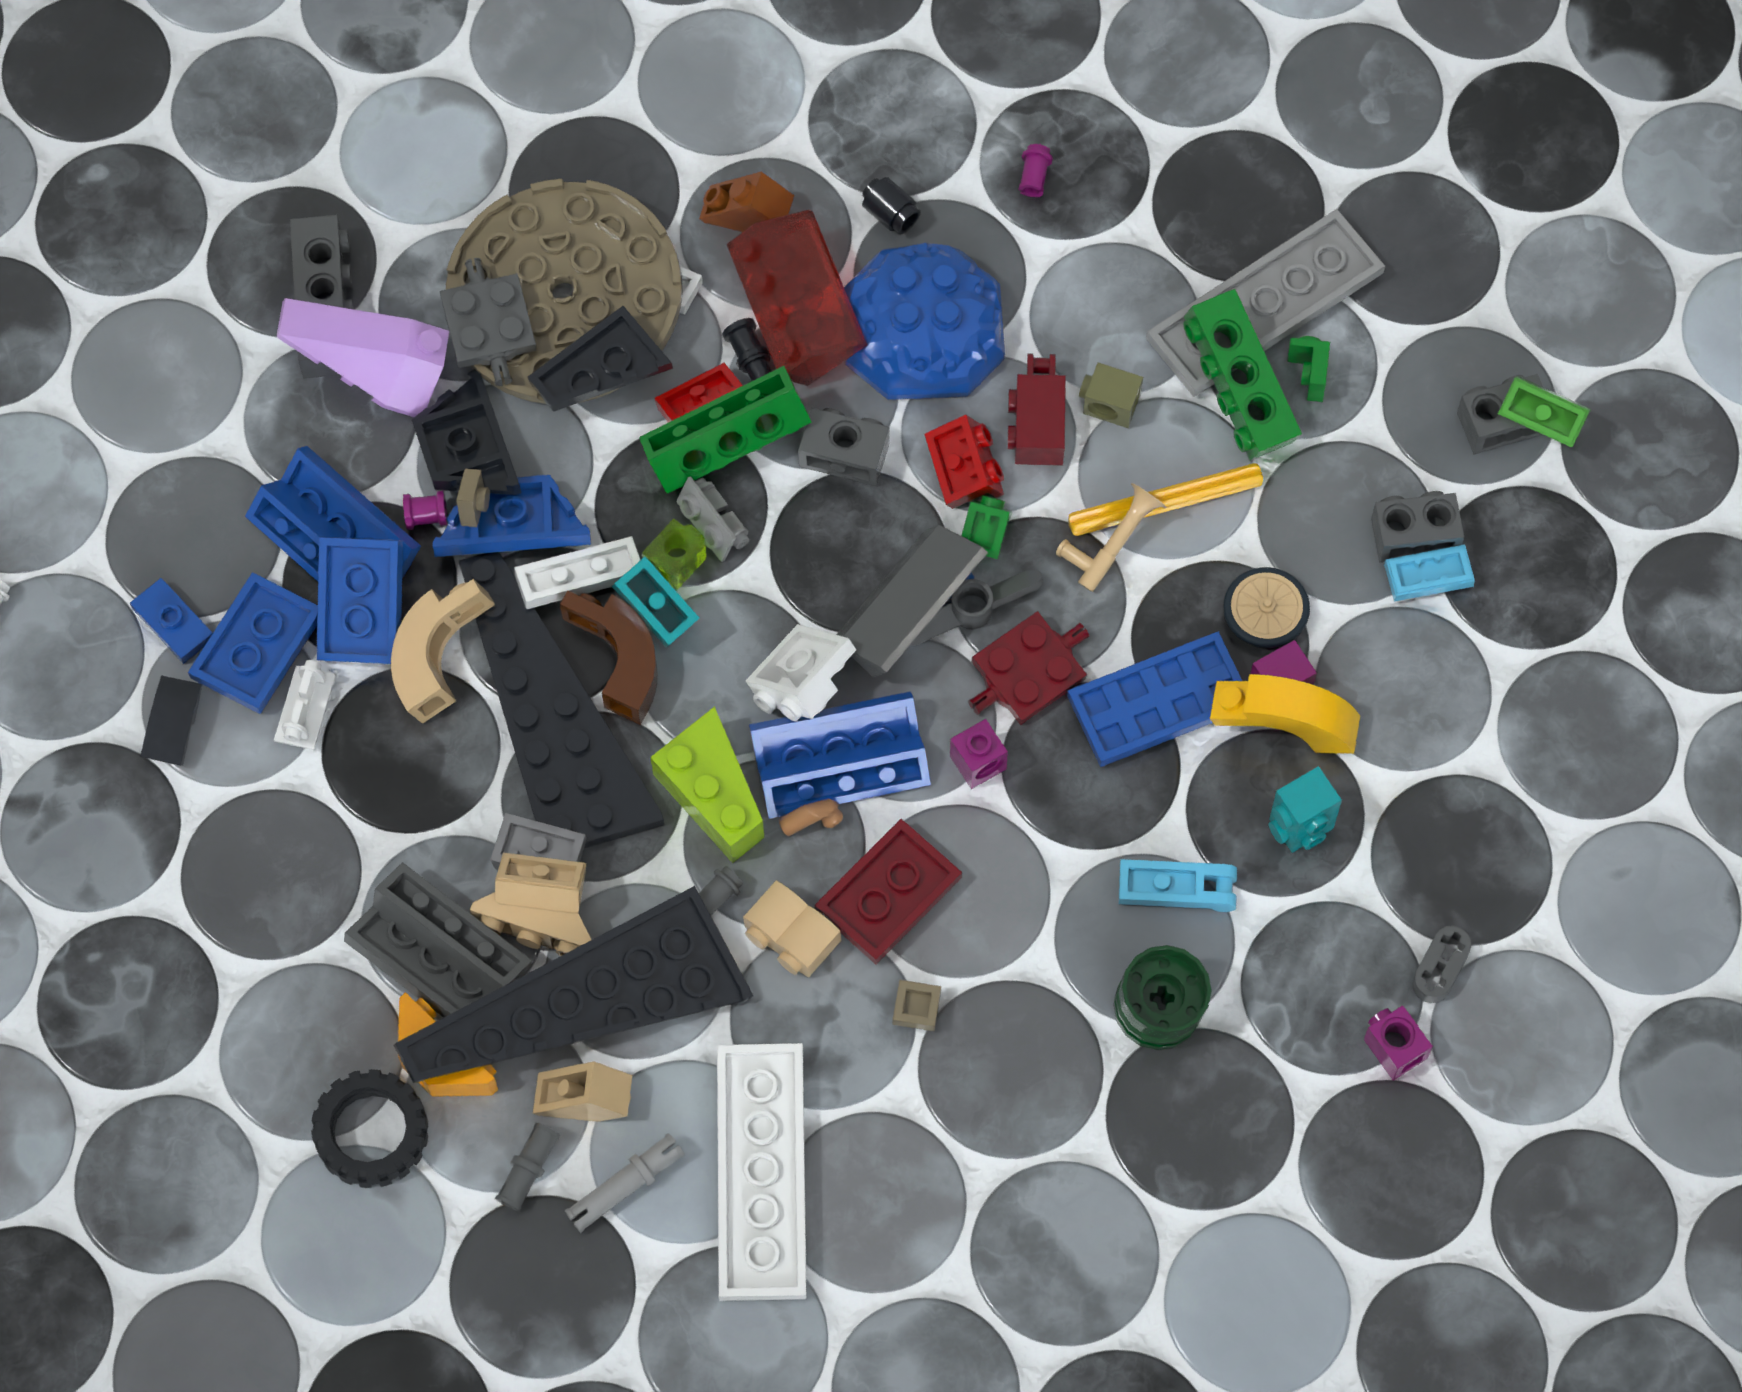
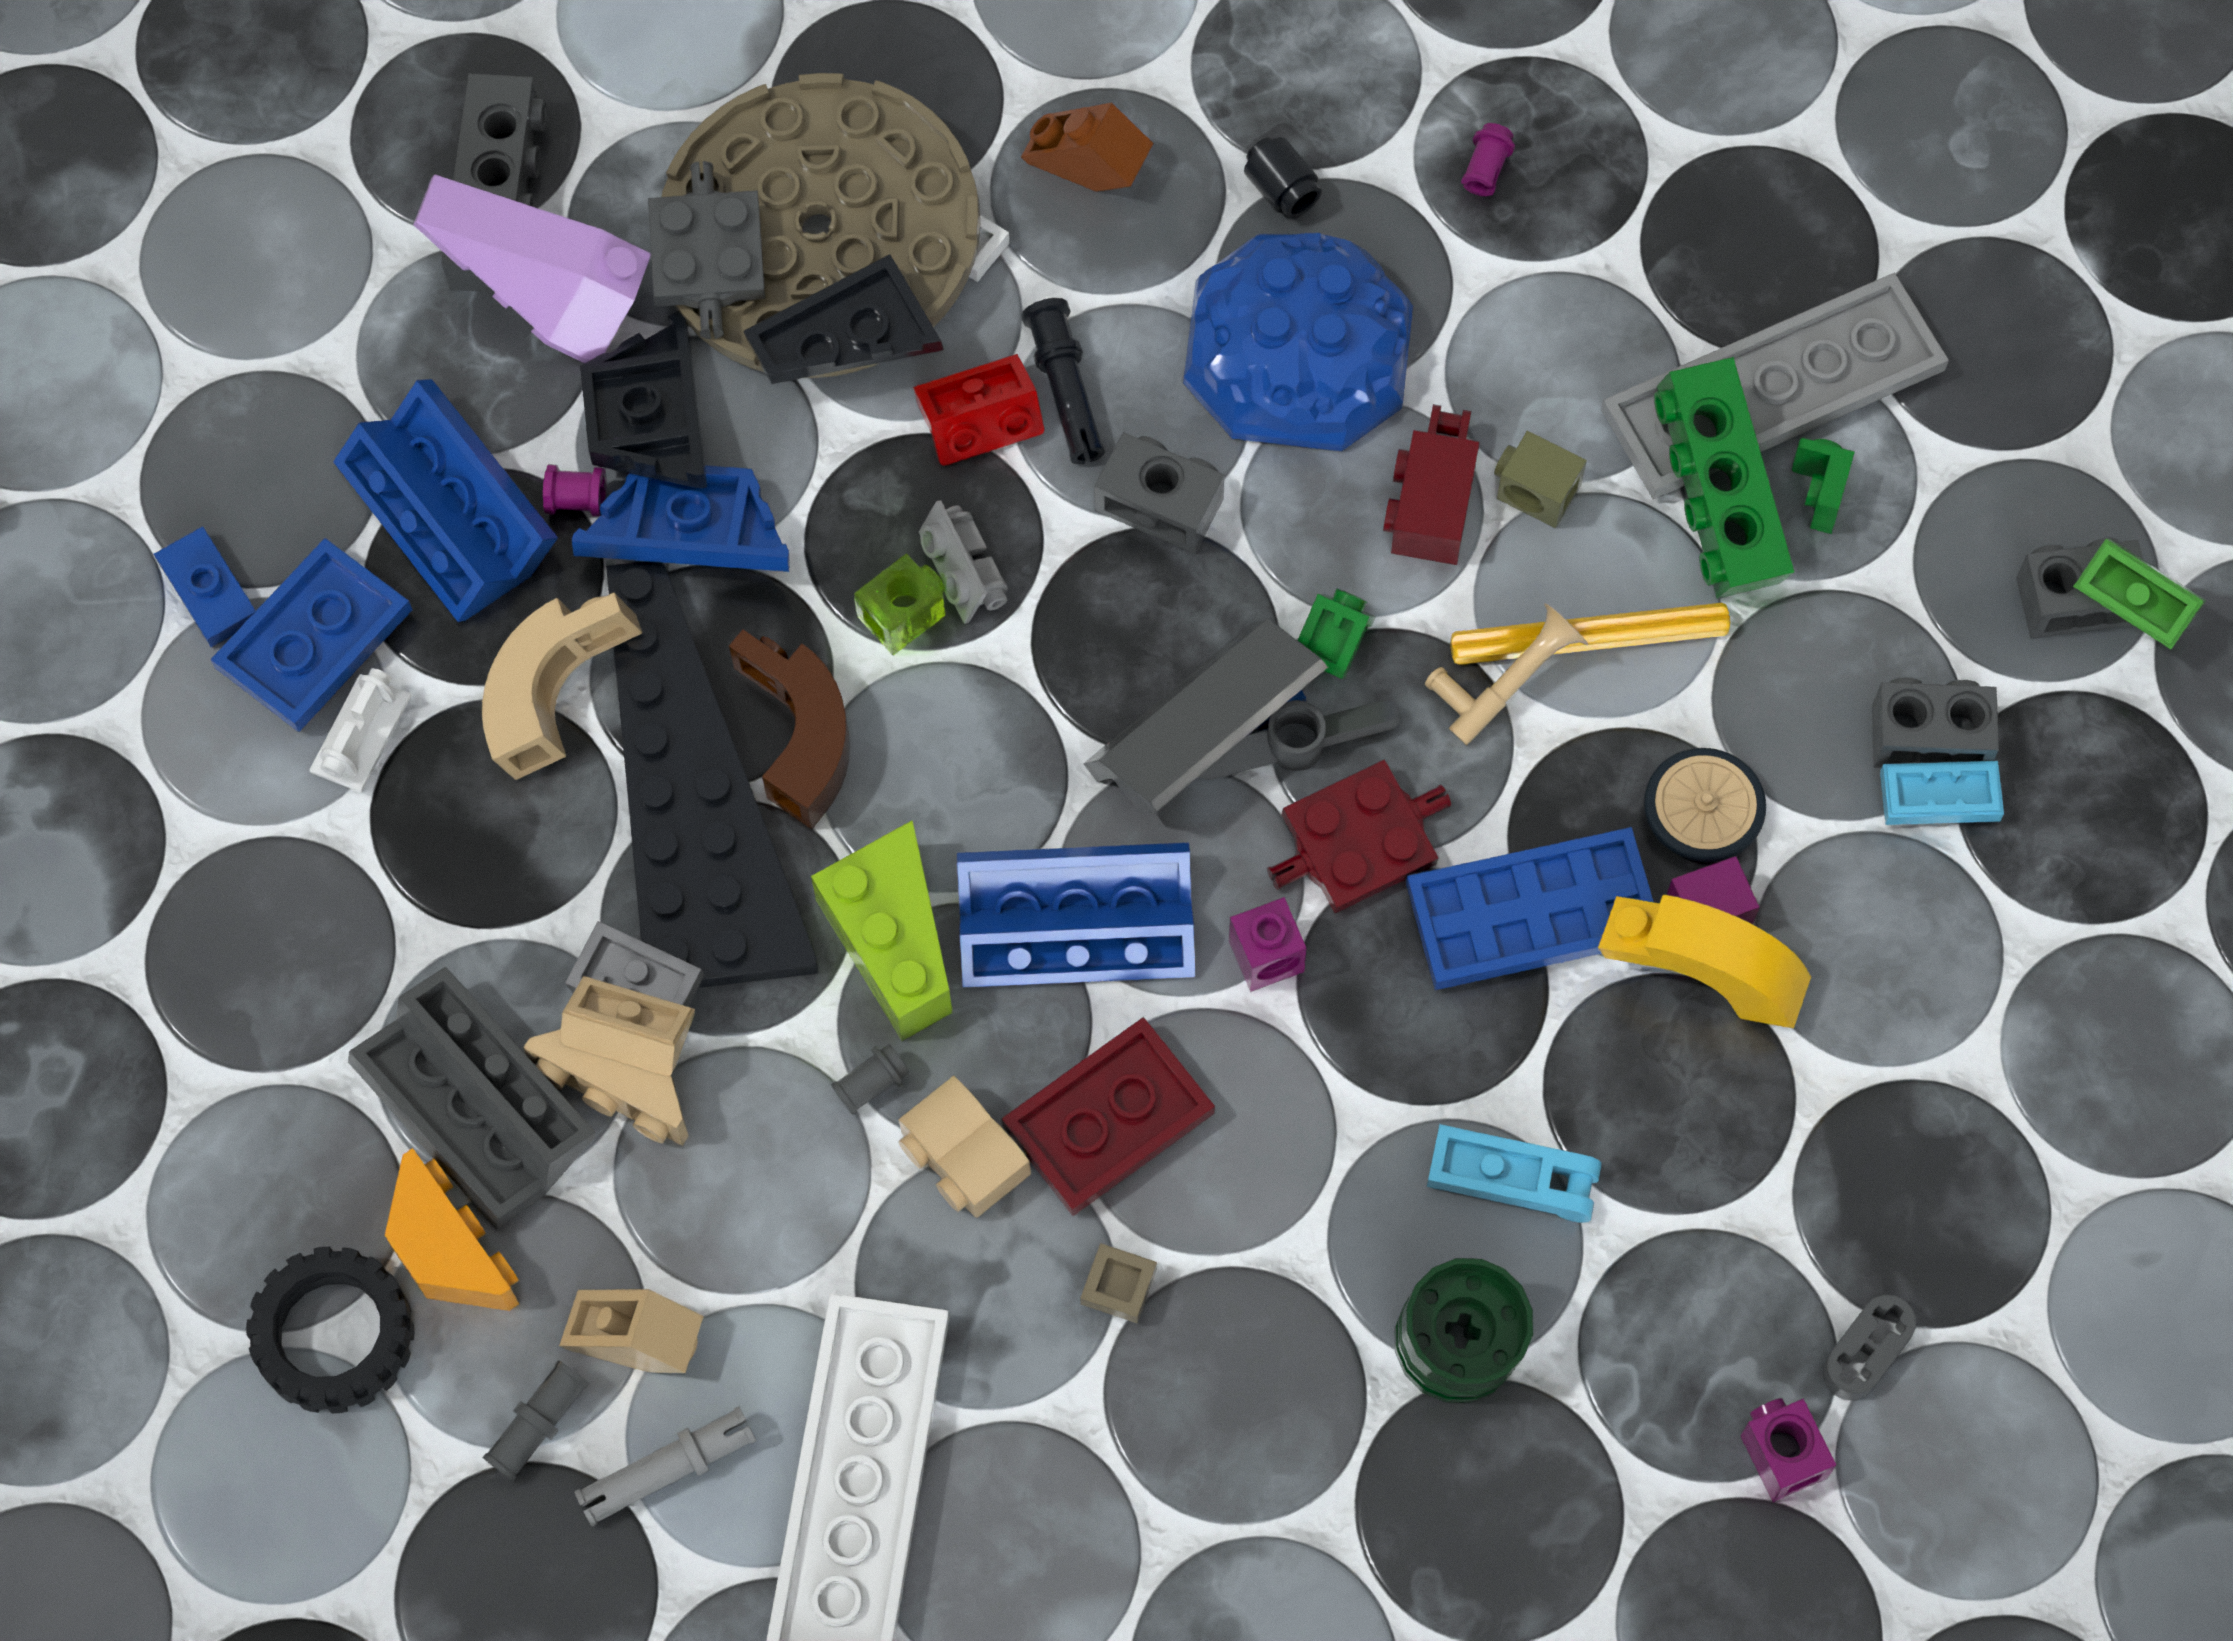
camera: 10 degrees right, 0 degrees up
(171, 720) = (175, 720): black slope -> none
(358, 599) = (457, 595): blue plate -> none
(472, 498) = (636, 482): dark tan plate -> none
(575, 572) = (766, 607): white plate -> none
(625, 979) = (720, 1179): black wing -> none
(655, 601) = (859, 663): teal brick -> none
(725, 429) = (969, 439): green brick -> none
(796, 295) = (1130, 279): clear red slope -> none
(800, 673) = (1037, 793): white plate -> none
(808, 814) = (1017, 990): medium nougat arm -> none
(964, 461) = (1321, 538): red bracket -> none
(1304, 811) = (1709, 1099): teal brick -> none

